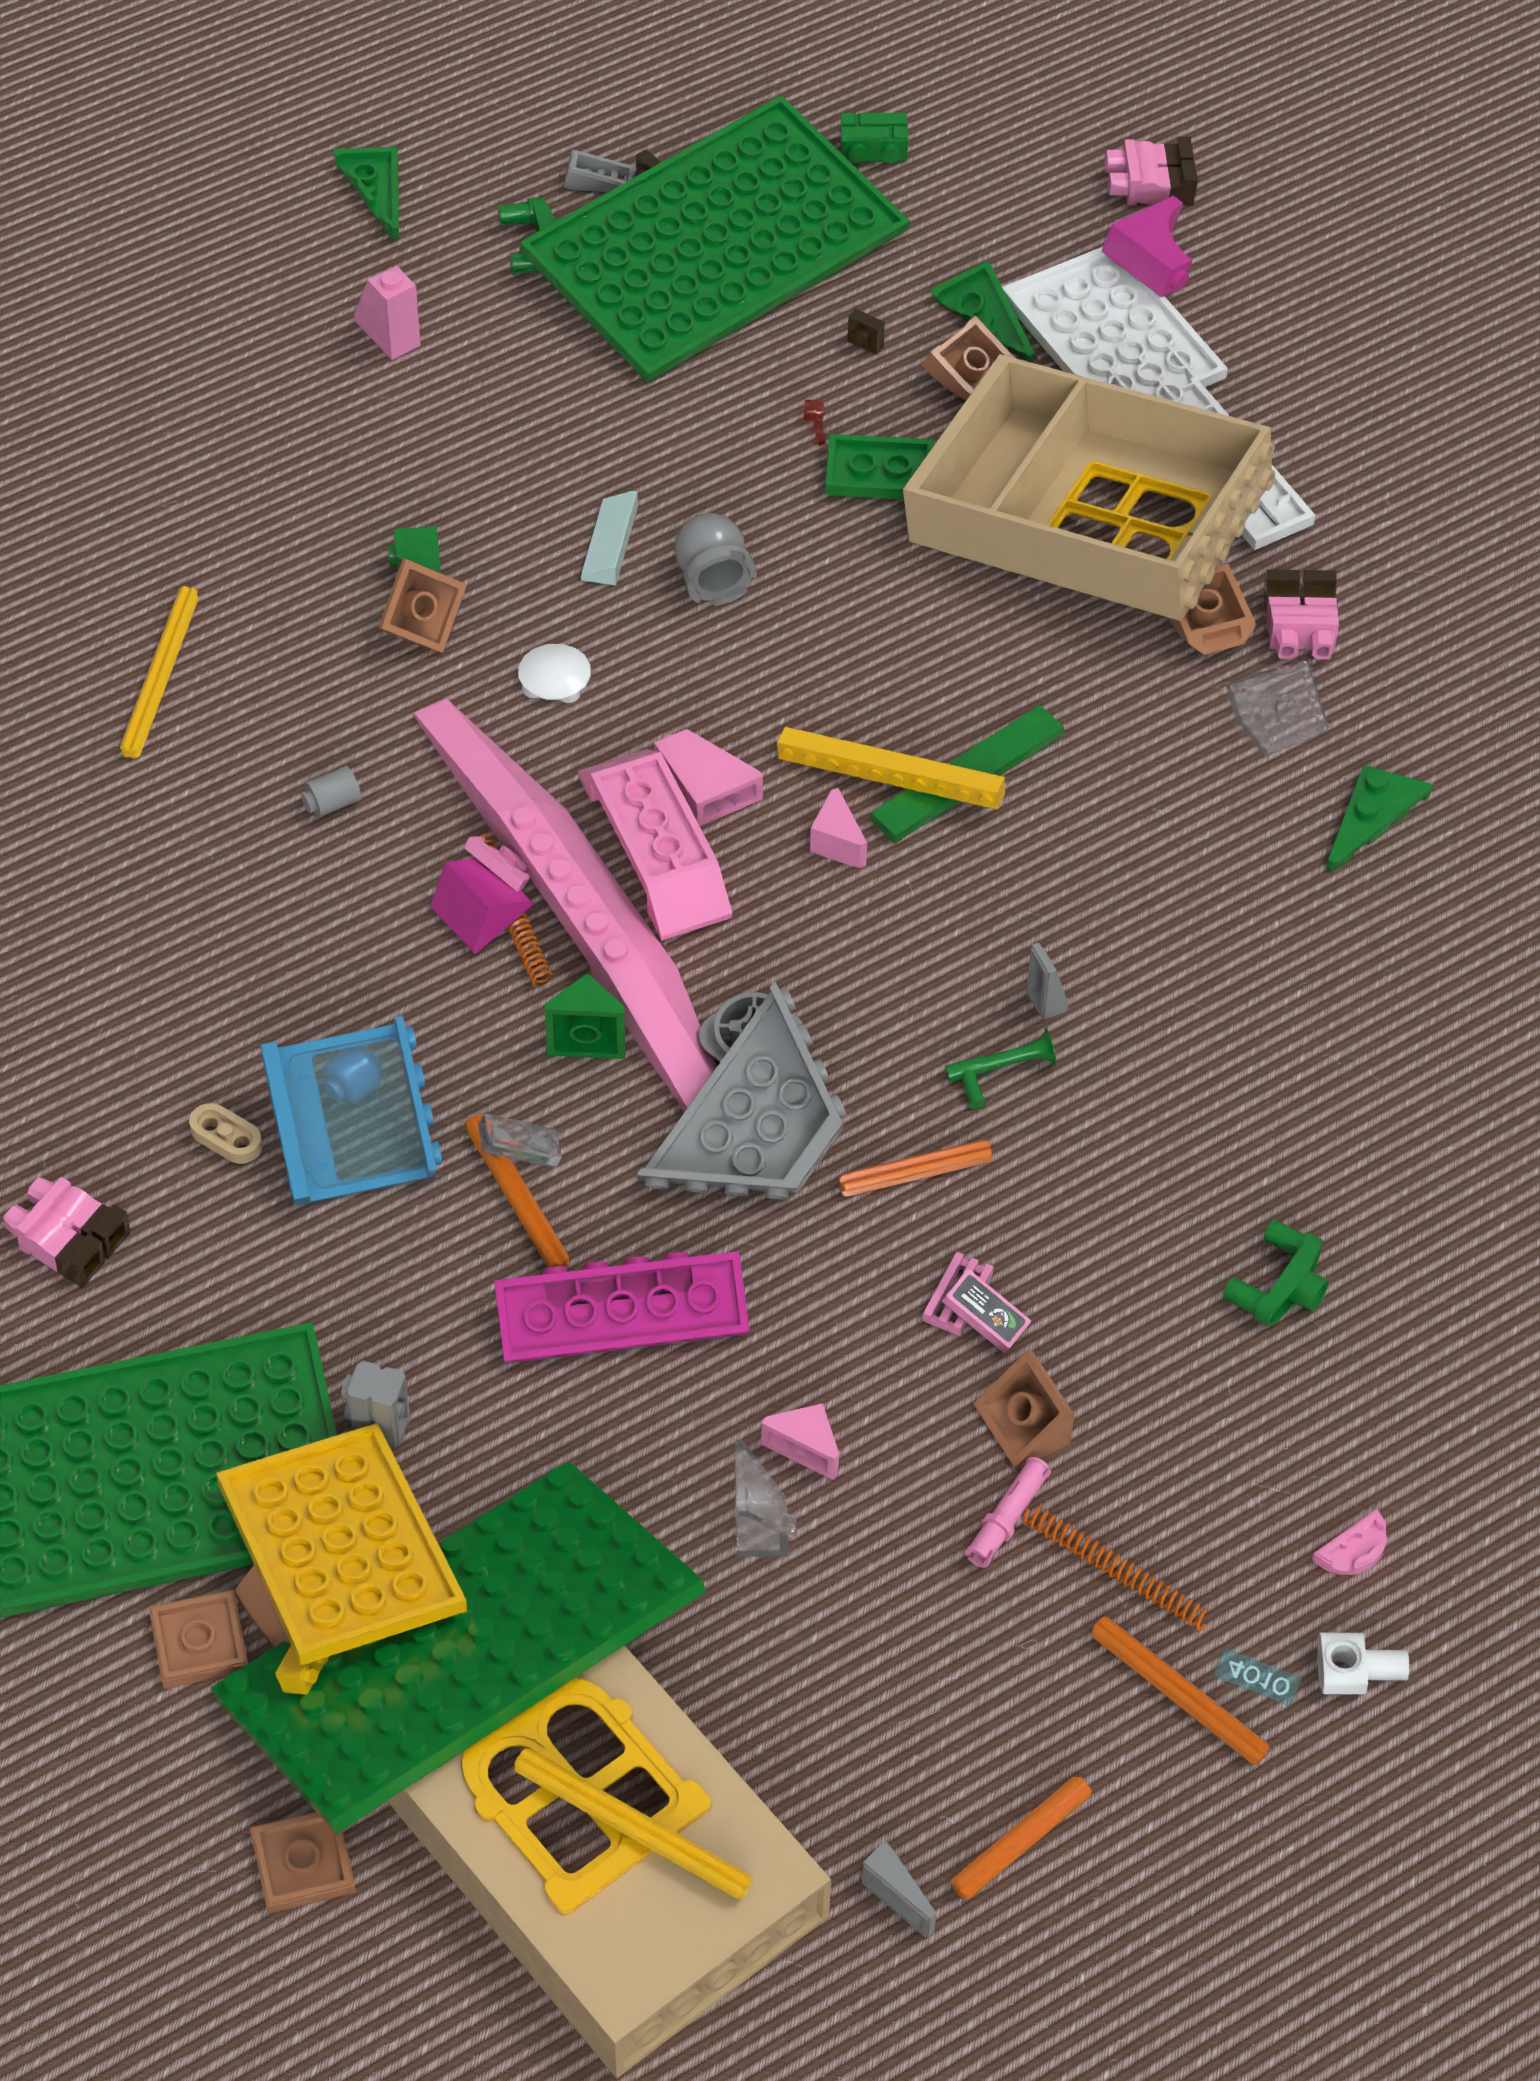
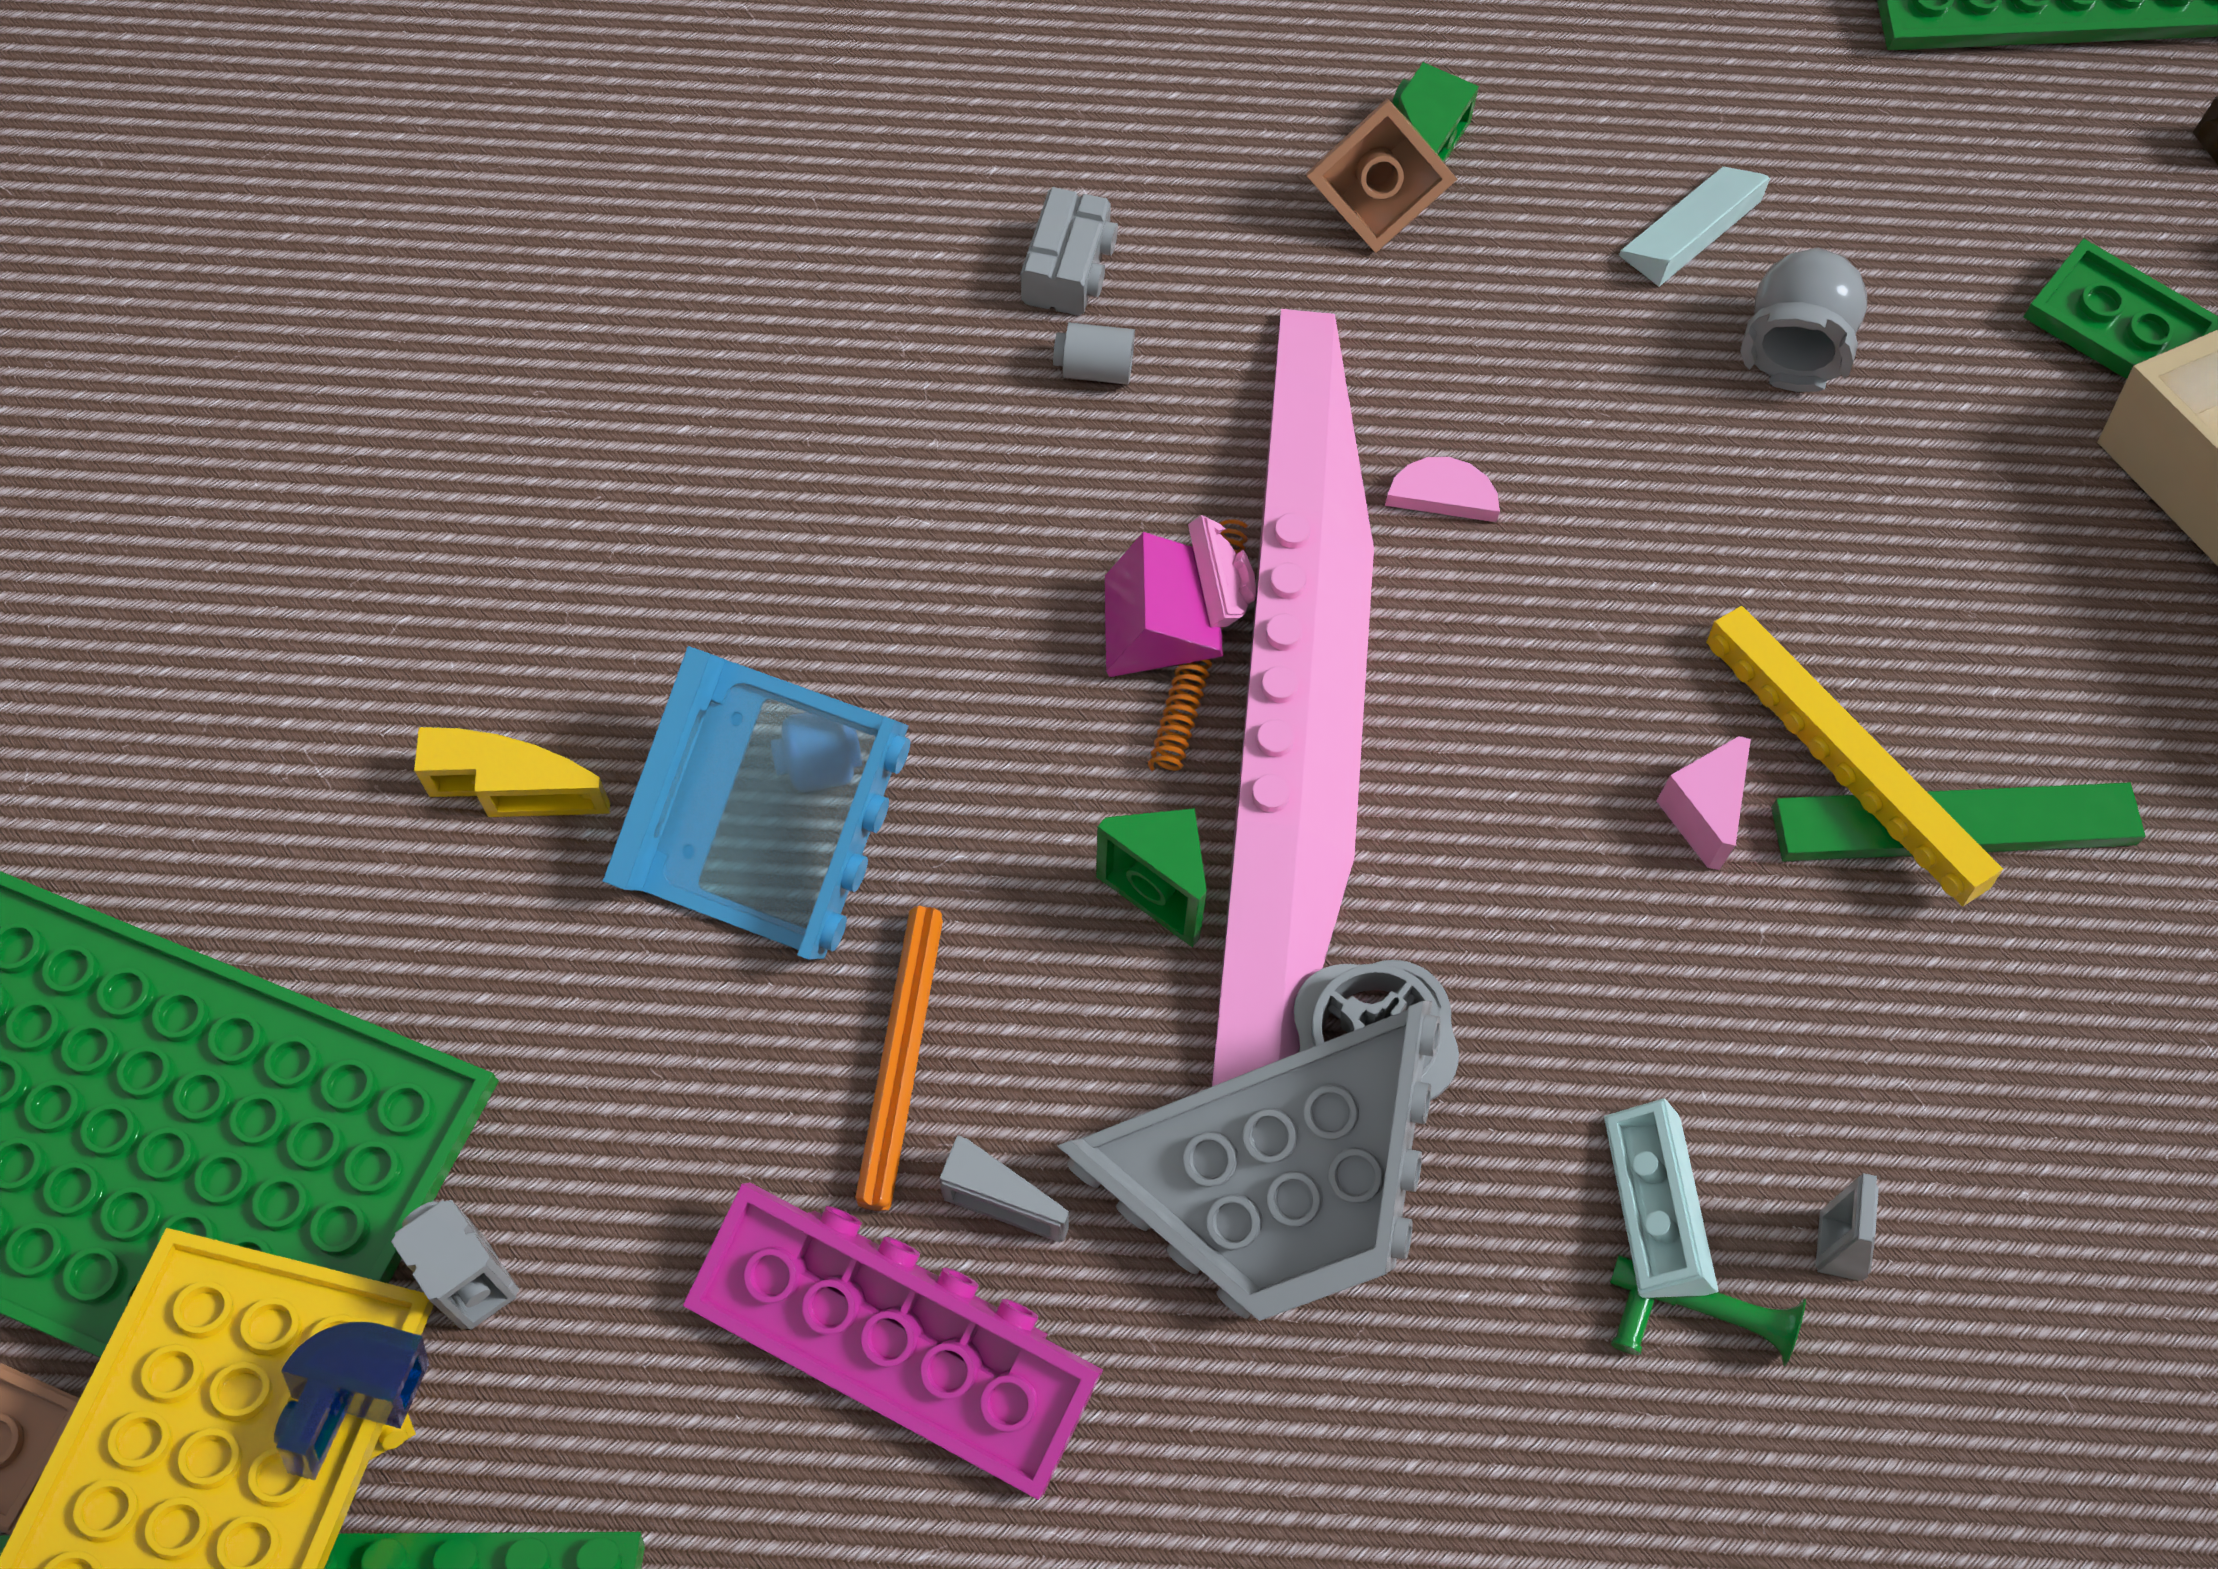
camera: 35 degrees right, 10 degrees up
(67, 1229) = (320, 716): hips -> none
(159, 672) = (1020, 90): yellow axle -> none
(188, 1187) = (505, 774): none -> yellow slope
(229, 1133) = (613, 733): tan plate -> none
(268, 747) = (1067, 252): none -> light grey brick
(382, 1459) = (340, 1371): none -> clear blue brick
(519, 1140) = (950, 986): clear piece -> none
(554, 673) = (1494, 357): white dish -> none
(580, 754) = (1445, 488): none -> bright pink tile
(623, 1217) = (992, 1189): none -> light grey slope
(660, 841) = (1453, 670): bright pink slope -> none
(709, 776) = (1584, 613): bright pink slope -> none
(814, 412) = (2082, 200): clear red hand -> none
(914, 1168) = (1464, 1392): orange axle -> none
(946, 1028) = (1660, 1202): none -> light aqua slope

